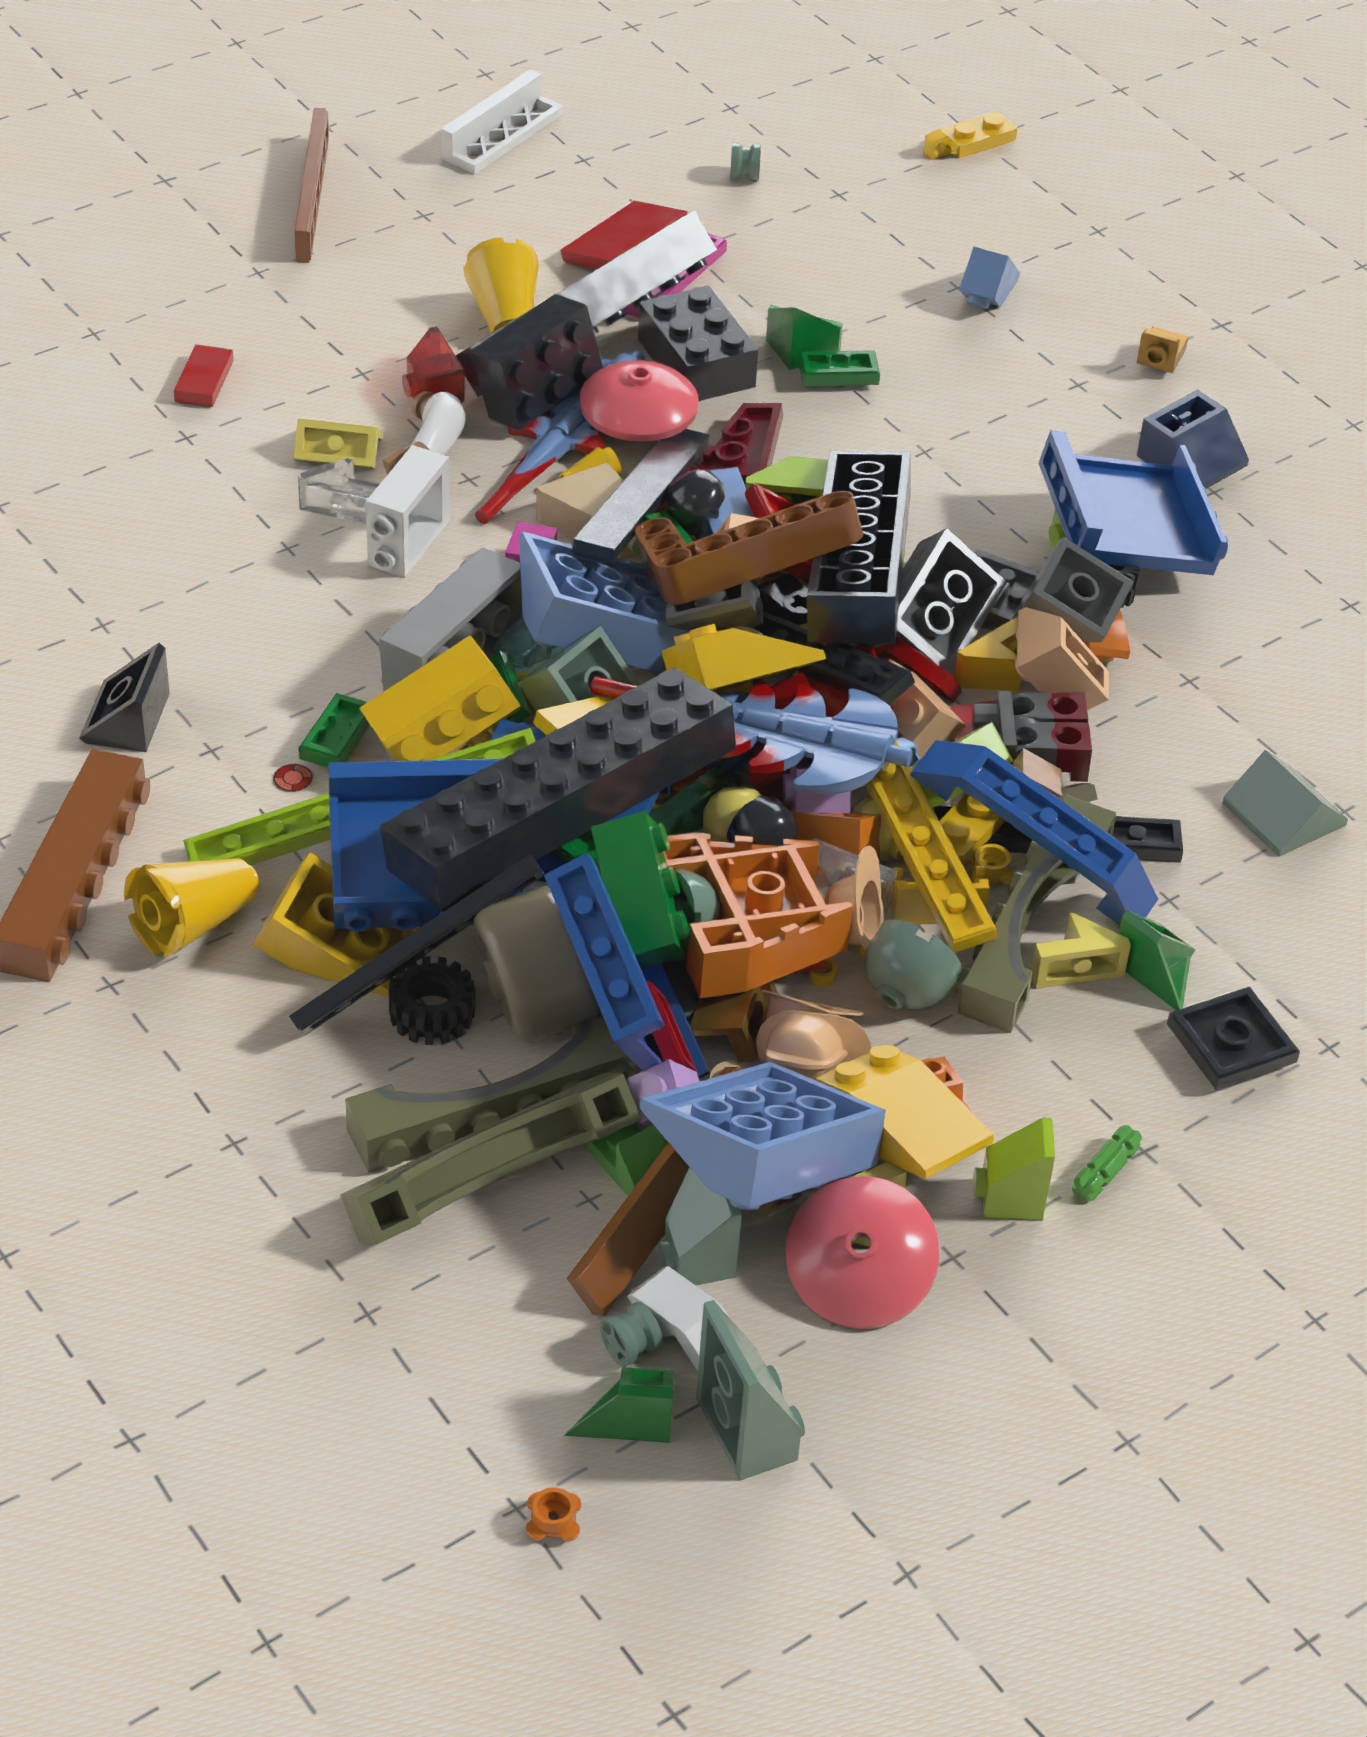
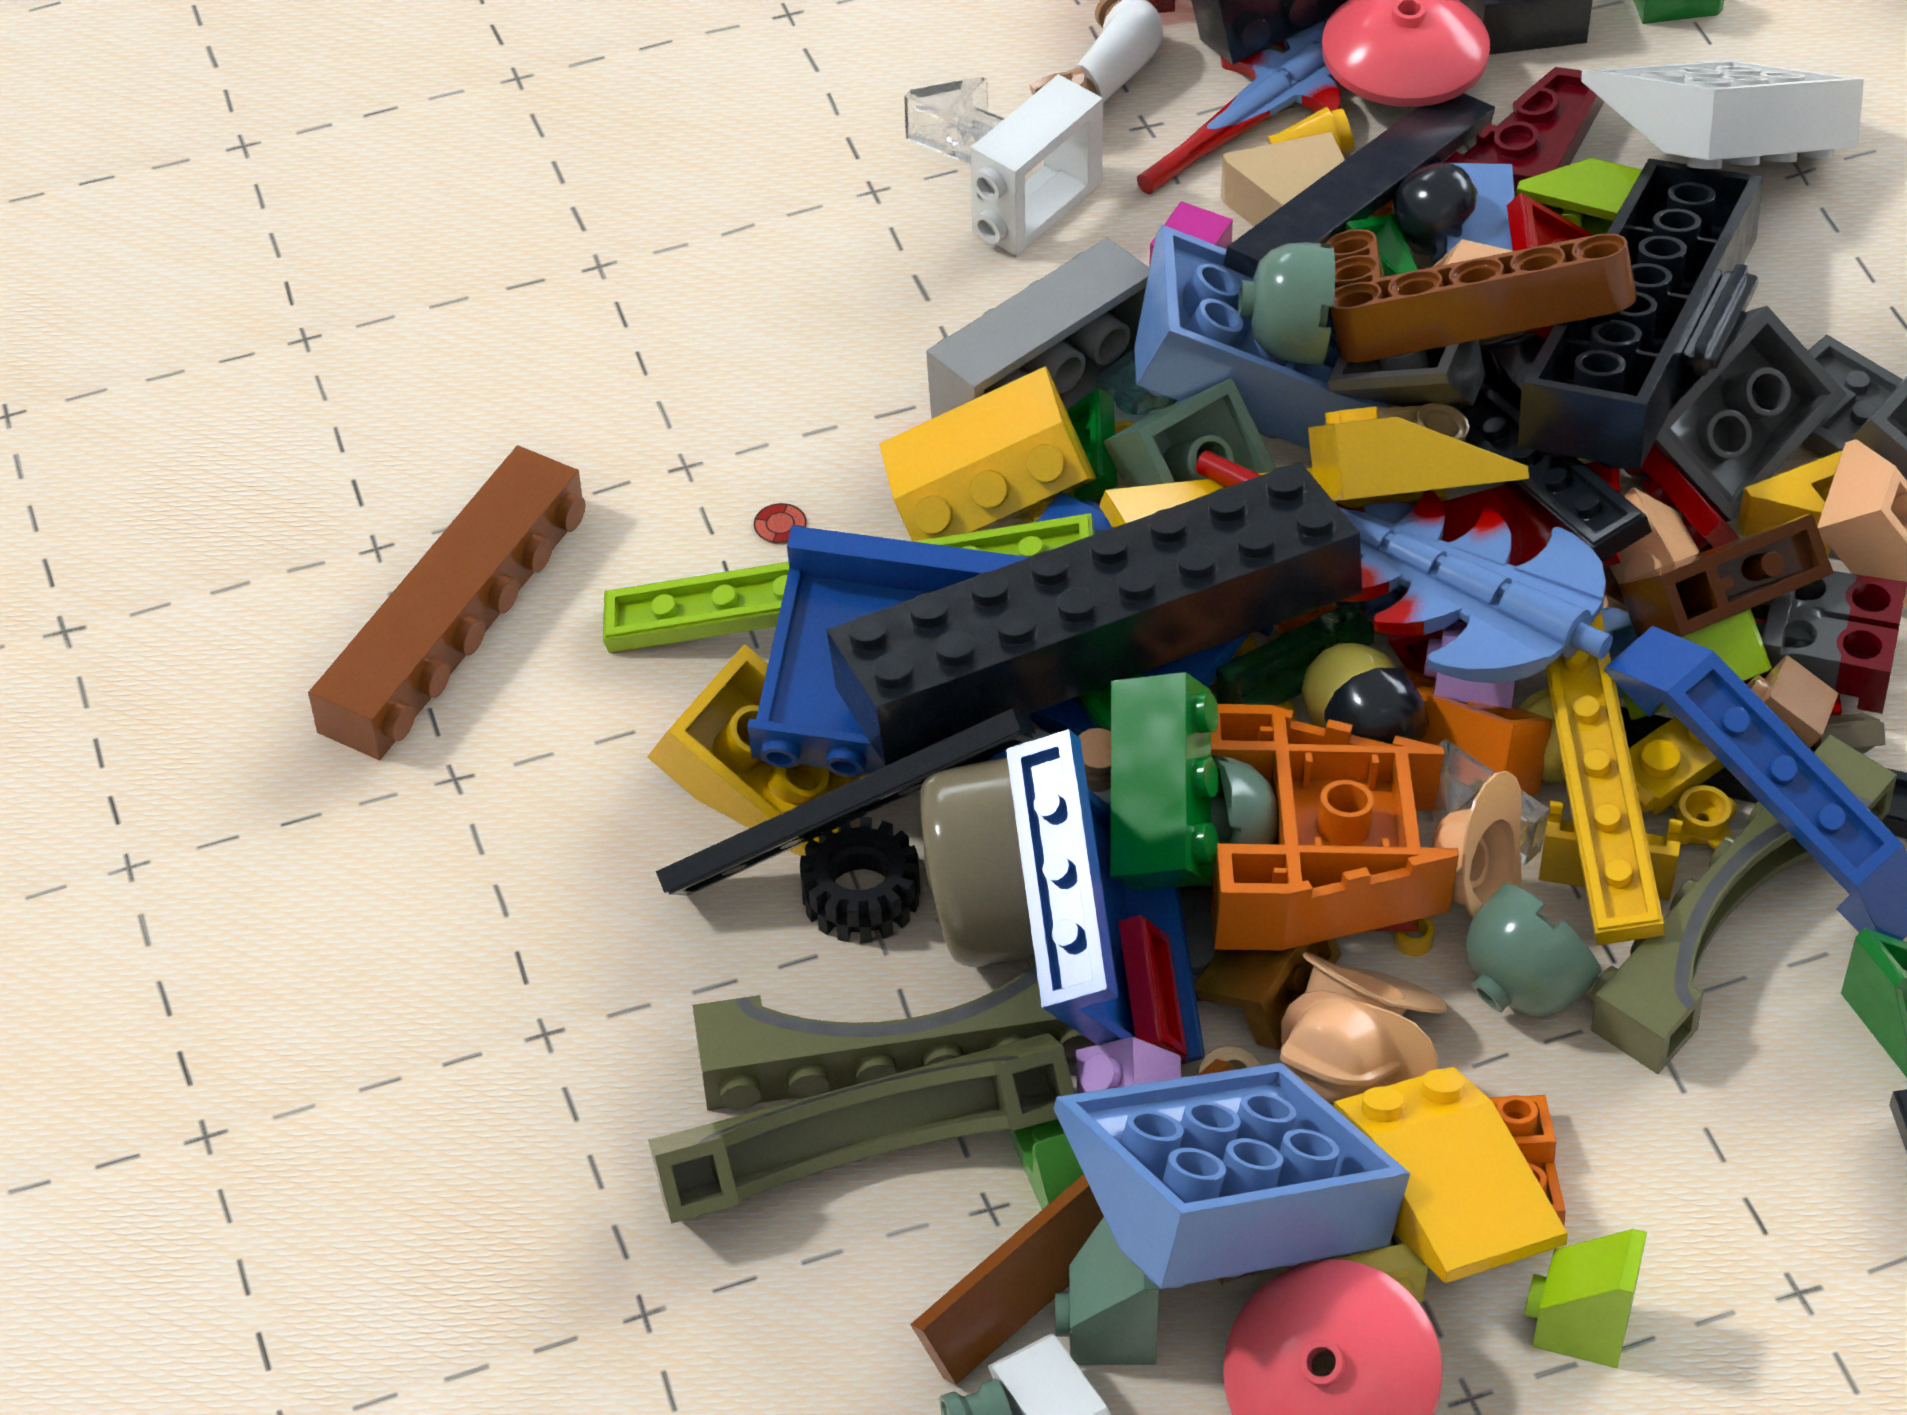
camera: 20 degrees right, 5 degrees up
(130, 703) = (596, 386): black slope -> none
(186, 900) = (581, 679): yellow cone -> none
(335, 441) = (978, 51): light yellow panel -> none
(335, 732) = (846, 471): green plate -> none
(630, 568) = (1291, 301): none -> sand green cylinder
(839, 368) = (1710, 32): green plate -> none
(877, 414) = (1734, 110): none -> white slope
(915, 543) = (1720, 320): none -> black axle
(971, 705) = (1727, 578): none -> reddish brown slope
(1083, 956) = (1798, 981): light yellow slope -> none
(1107, 1163) = (1734, 1301): bright green axle -> none

